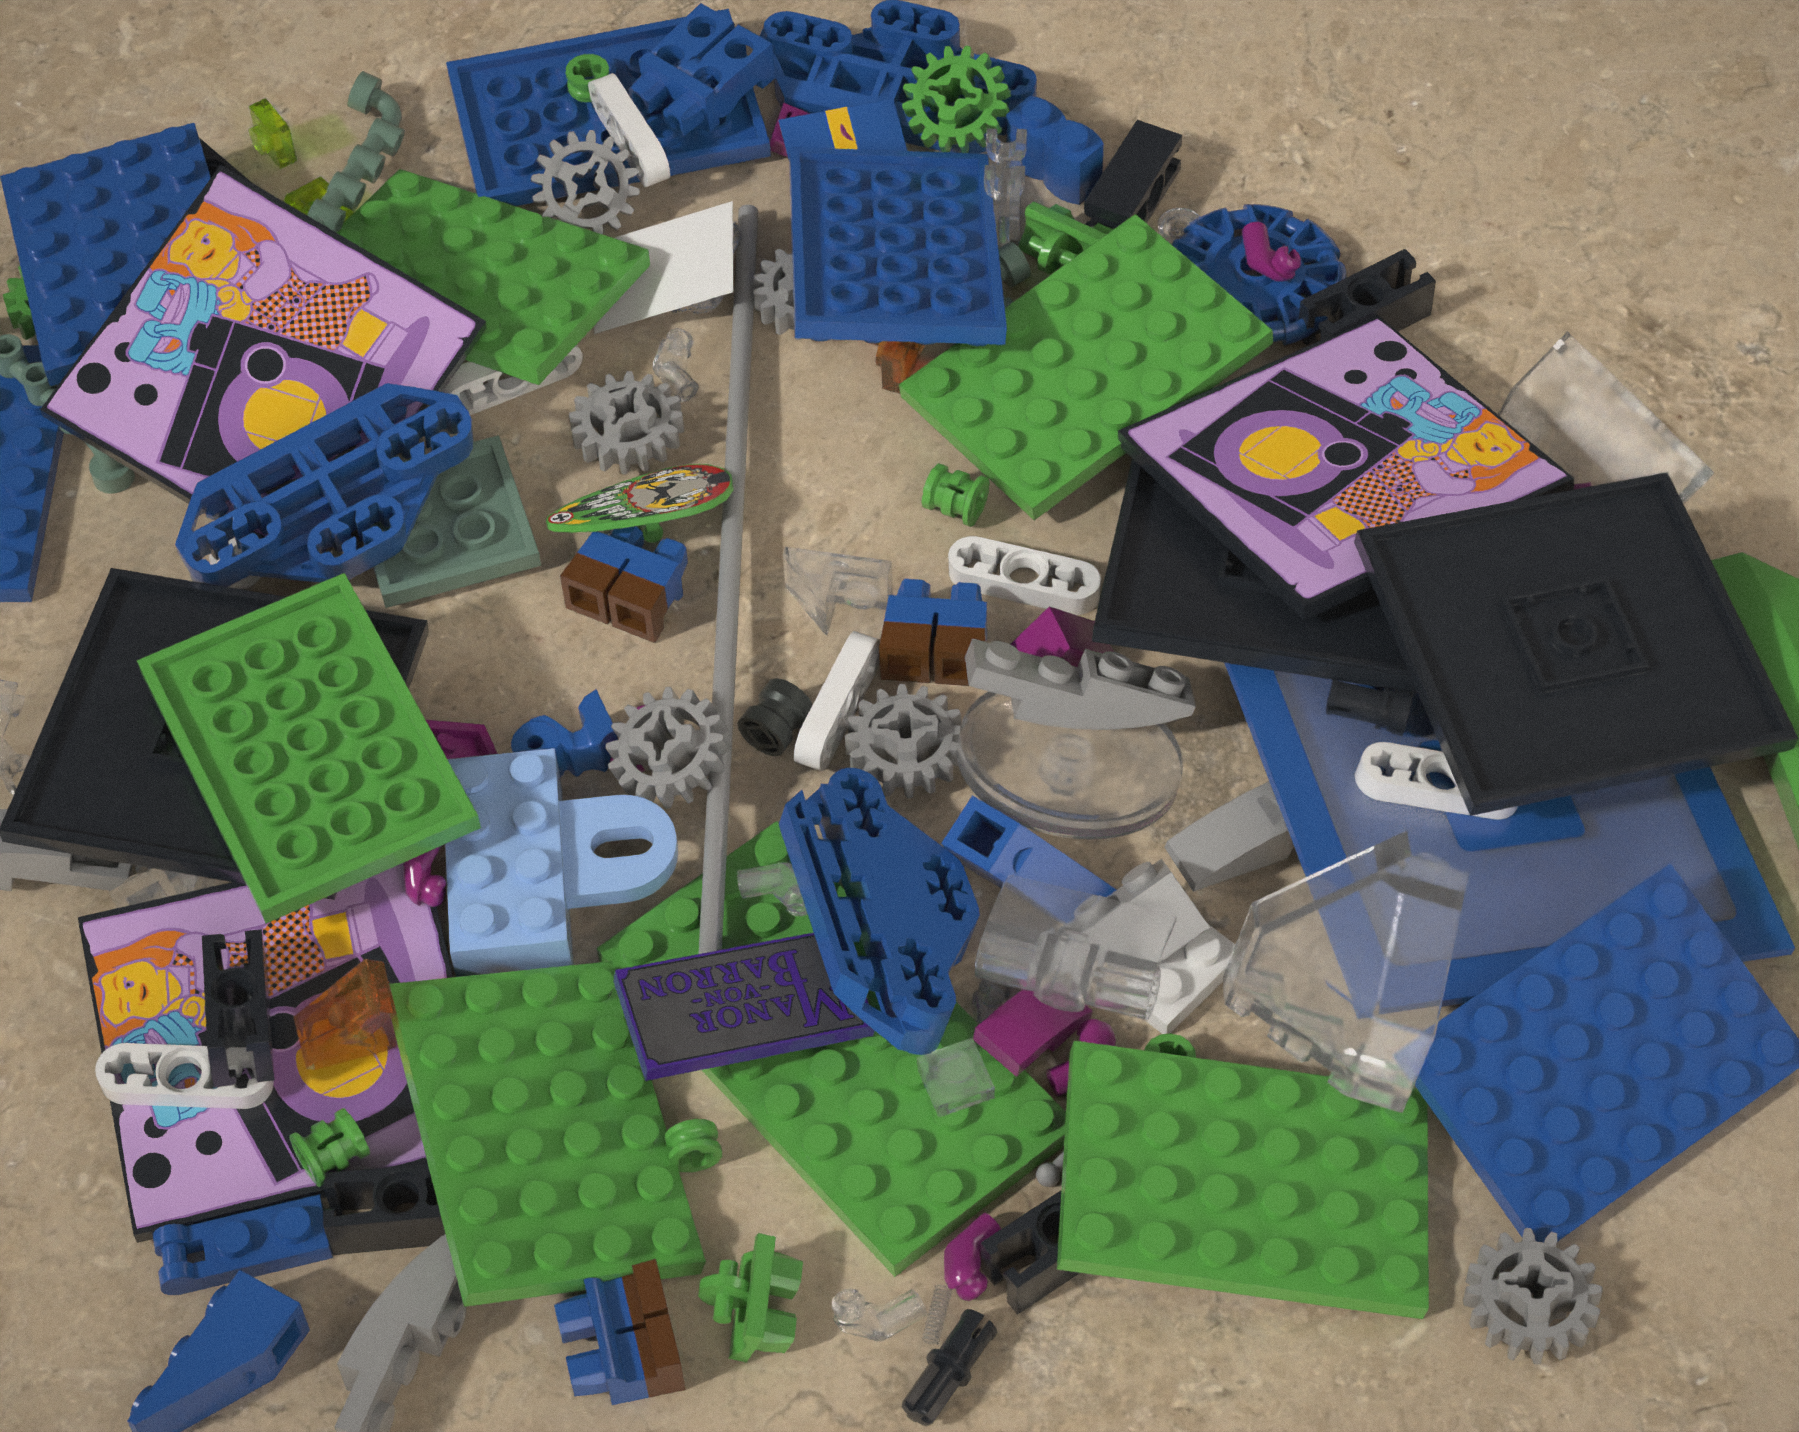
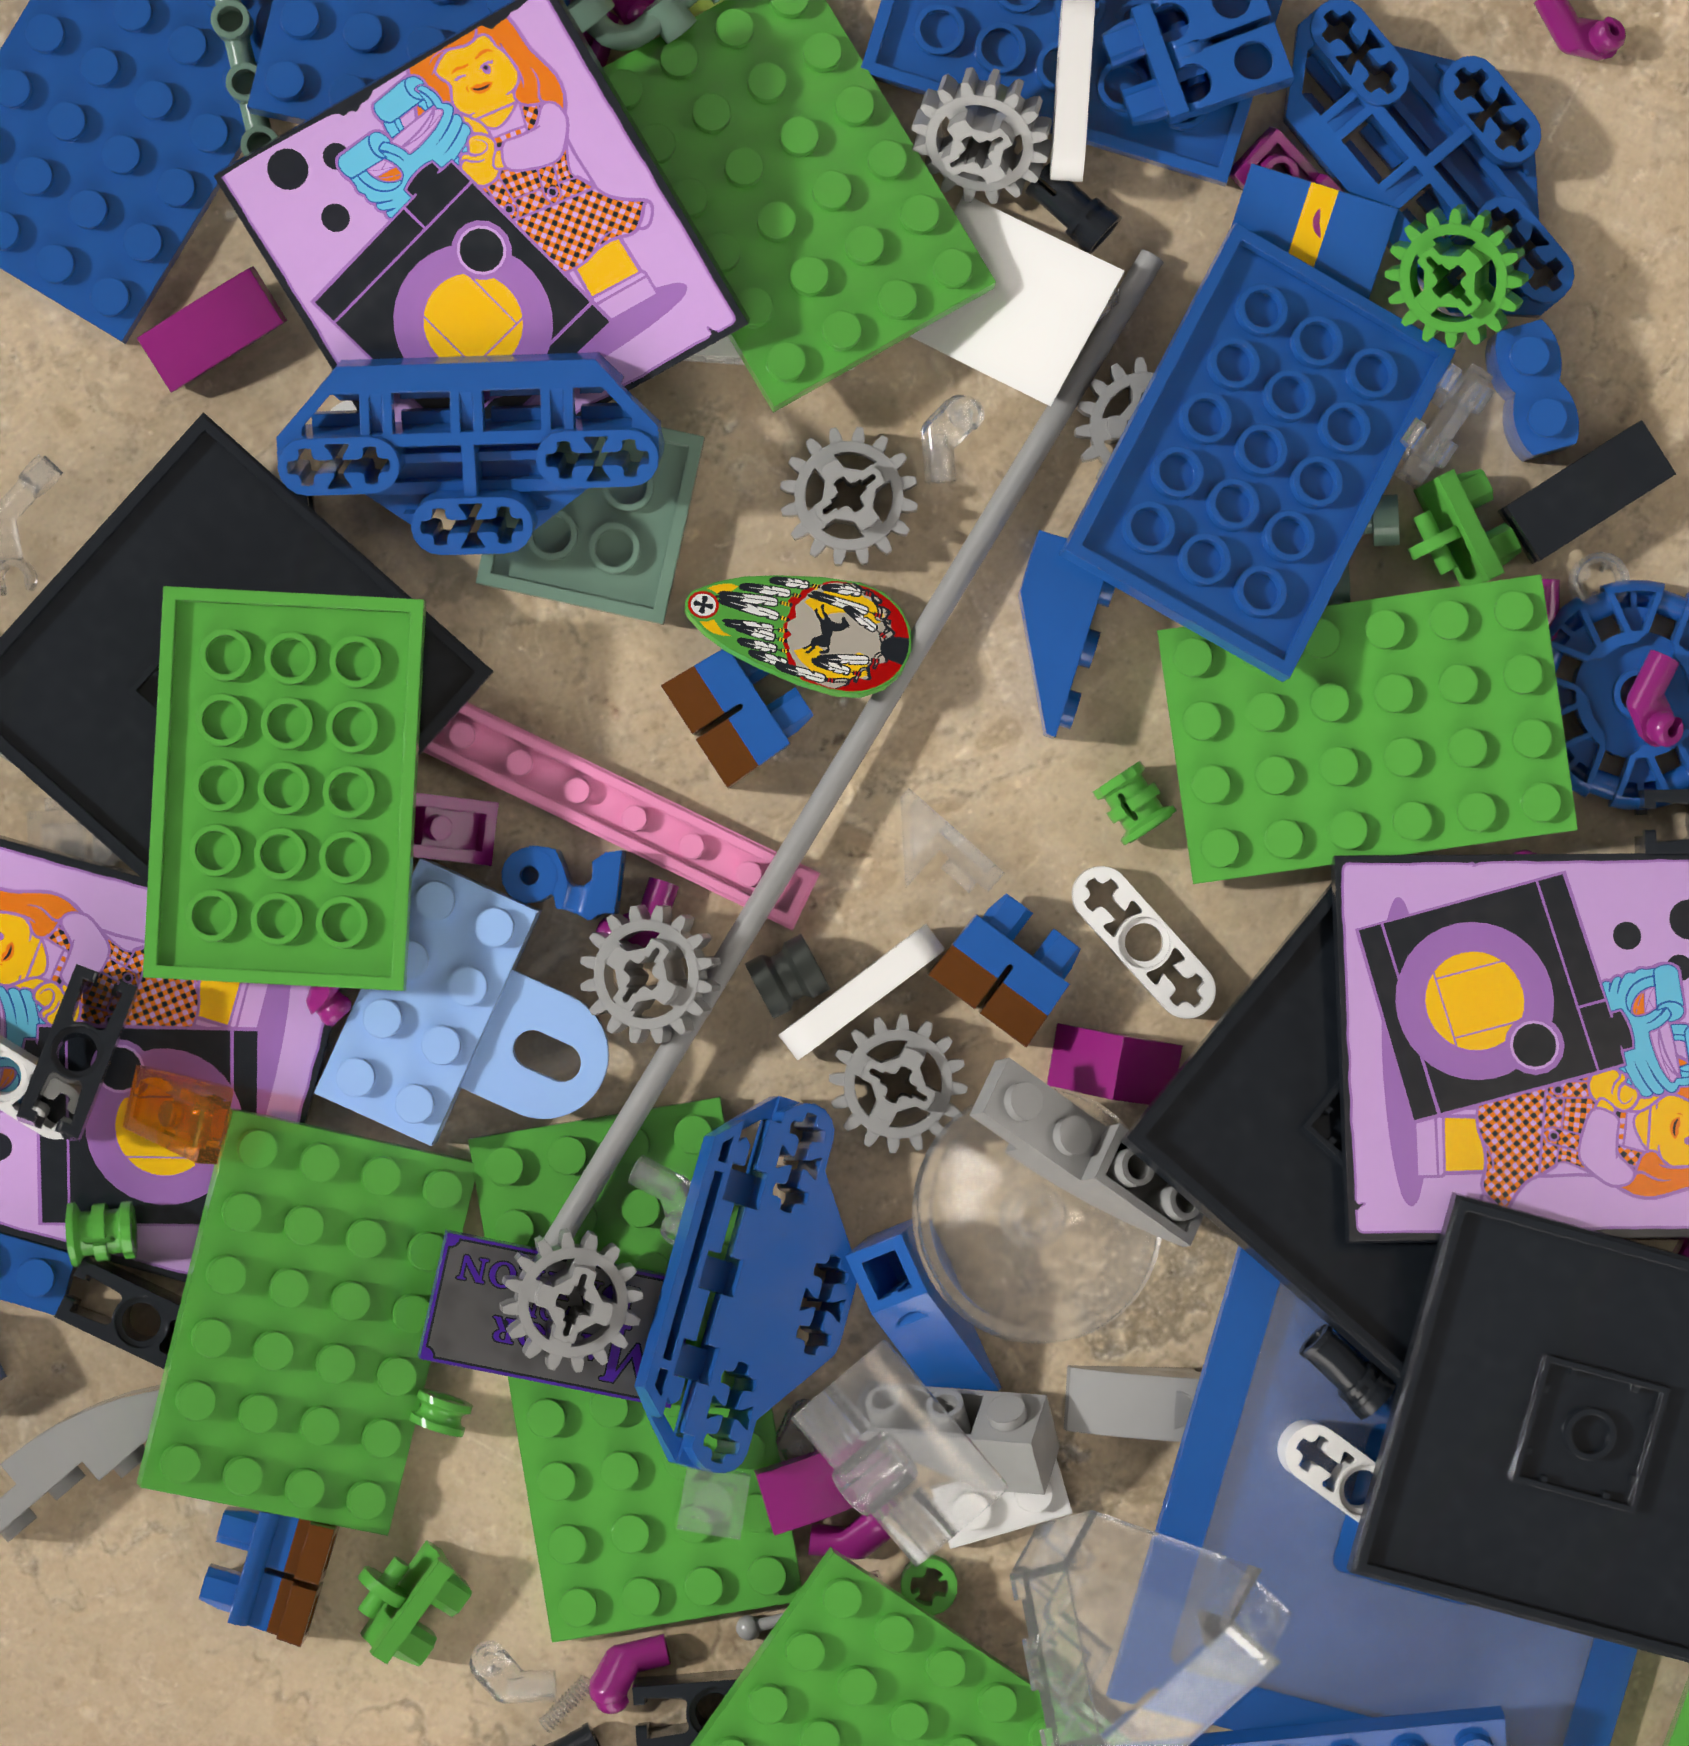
camera: 25 degrees right, 35 degrees up
(91, 546) = (212, 329): none -> magenta slope
(558, 690) = (615, 809): none -> bright pink tile
(669, 205) = (1086, 219): none -> black pin
(742, 958) = (543, 1291): none -> light grey gear
(821, 419) = (1057, 615): none -> blue slope

